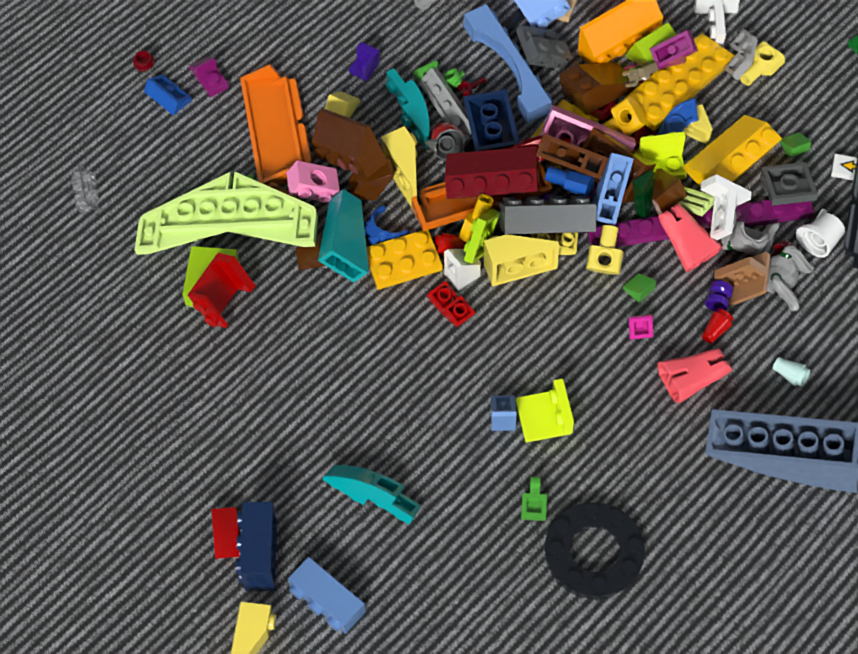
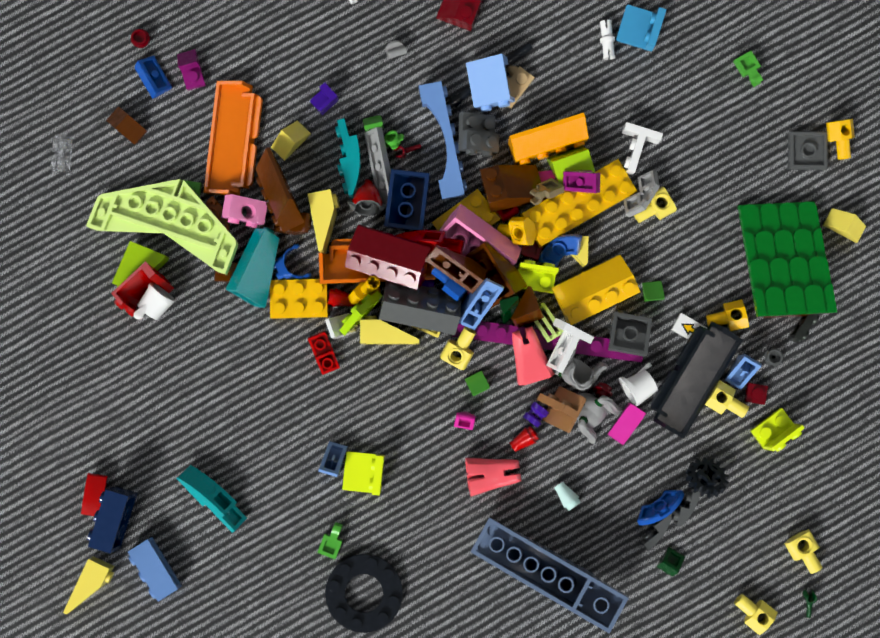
camera: 15 degrees right, 25 degrees up
(152, 143) = (126, 125): none -> reddish brown slope
(238, 301) = (154, 302): none -> white hat
(825, 277) = (626, 423): none -> dark pink slope

